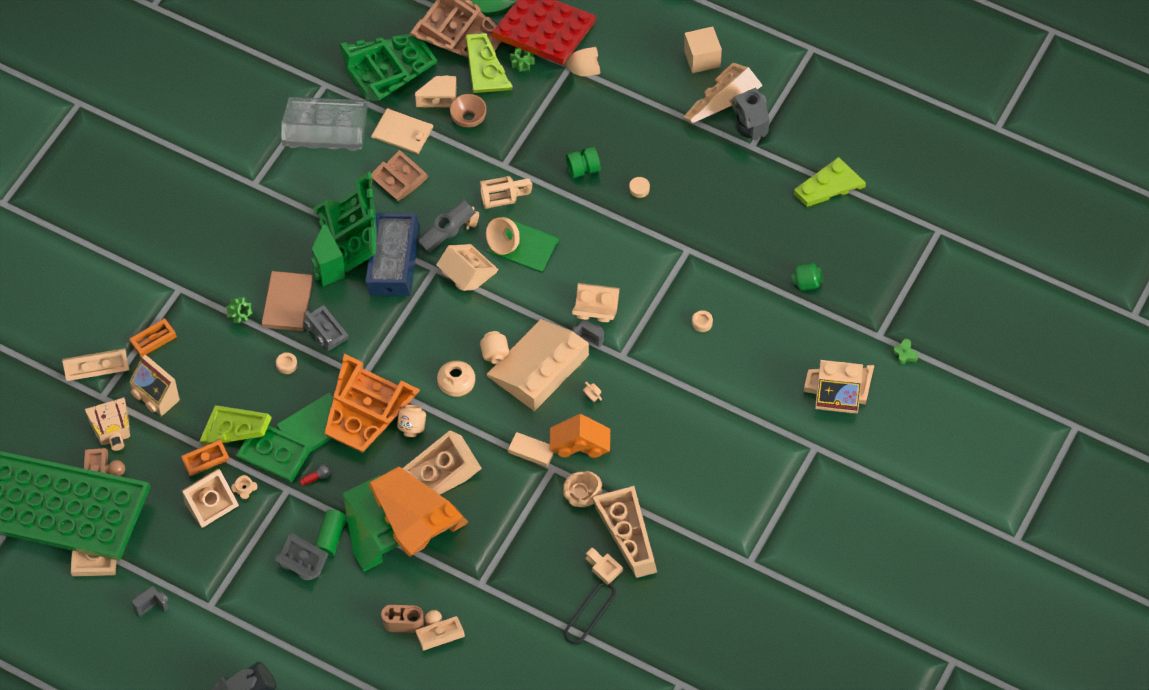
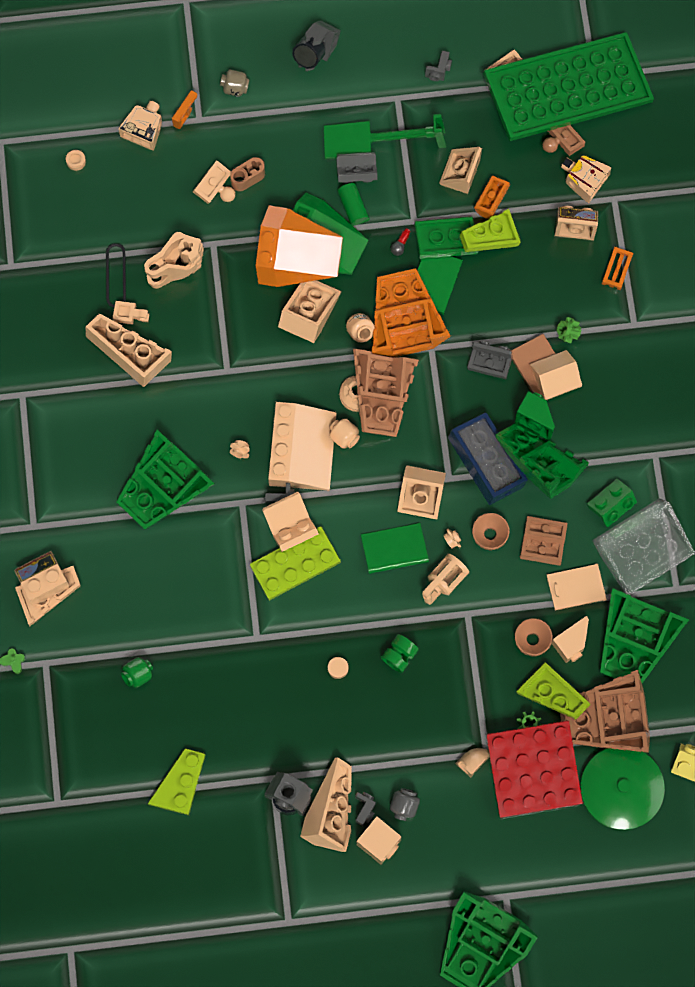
camera: 145 degrees right, 15 degrees up
(95, 364) = (639, 214): light nougat plate -> none
(244, 481) = (442, 193): light nougat plate -> none
(278, 590) = (357, 137): none -> green piece
(279, 284) = (556, 374): none -> light nougat slope
(286, 363) = (498, 317): light nougat tile -> none
(320, 168) = (612, 502): none -> green bracket
(434, 361) = (382, 390): none -> nougat wedge
(436, 195) = (493, 522): none -> nougat piece
(455, 218) = (461, 519): dark grey piece -> none
(497, 236) = (410, 534): light nougat piece -> none
(518, 587) = (179, 245): none -> light nougat piece
(531, 449) = (253, 372): light nougat tile -> none
(580, 435) = (217, 397): orange brick -> none
(581, 488) = (187, 361): light nougat hair -> none
(634, 280) = (287, 569): none -> lime plate
(662, 64) = (404, 804): none -> dark grey head
(678, 403) = (161, 482): none -> green wedge
(695, 77) = (366, 813): none -> dark grey bracket
(702, 321) = (198, 576): light nougat tile -> none

